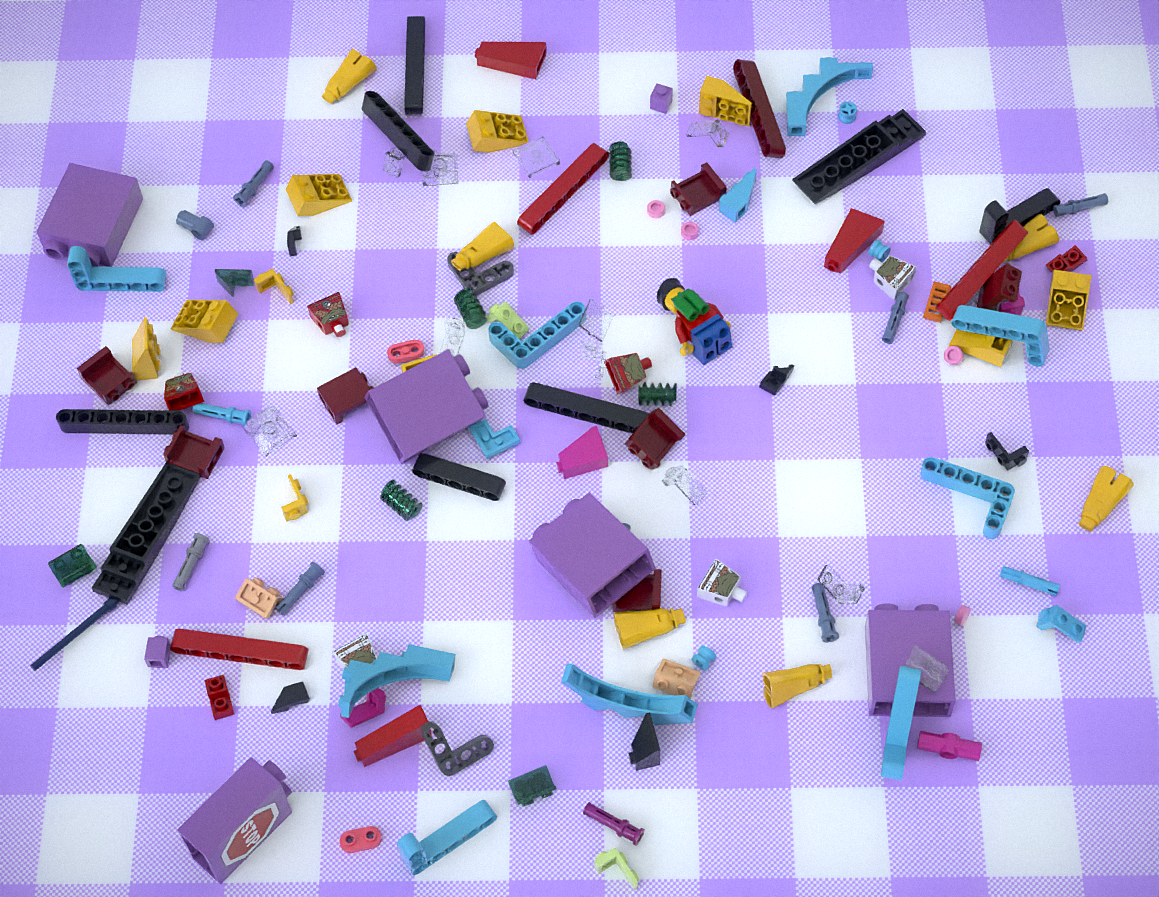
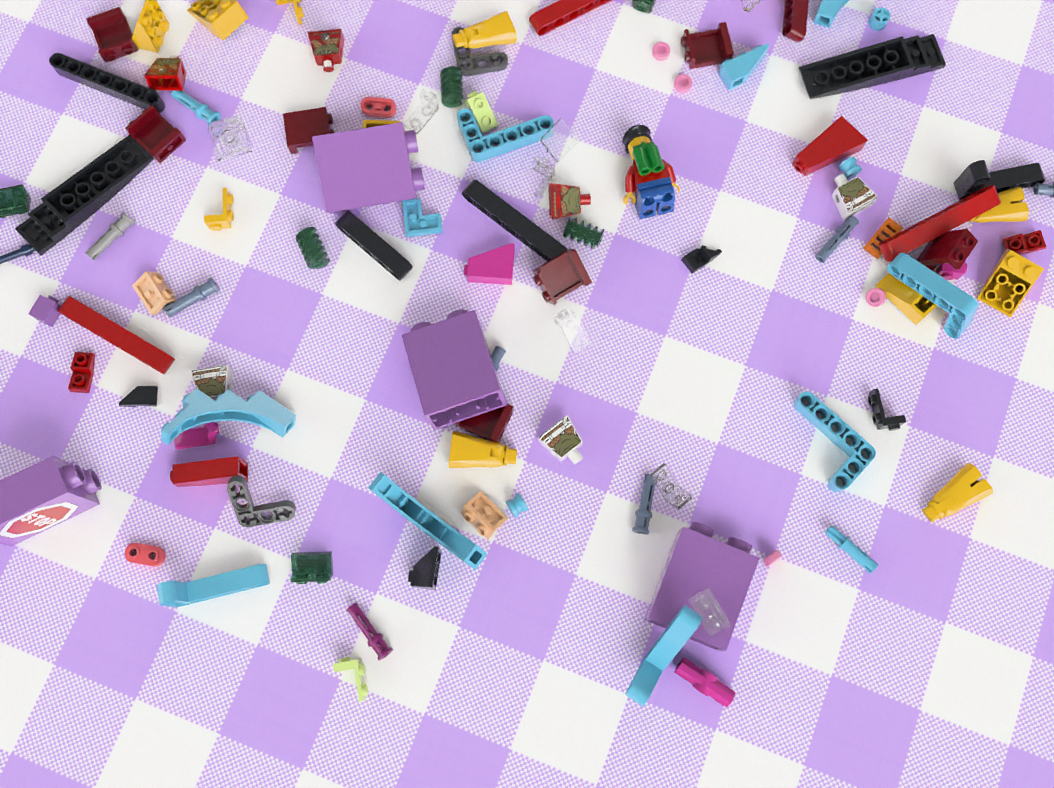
camera: 20 degrees right, 15 degrees up
(788, 683) = (577, 563): yellow piece -> none
(1063, 621) = (863, 602): medium azure bracket -> none

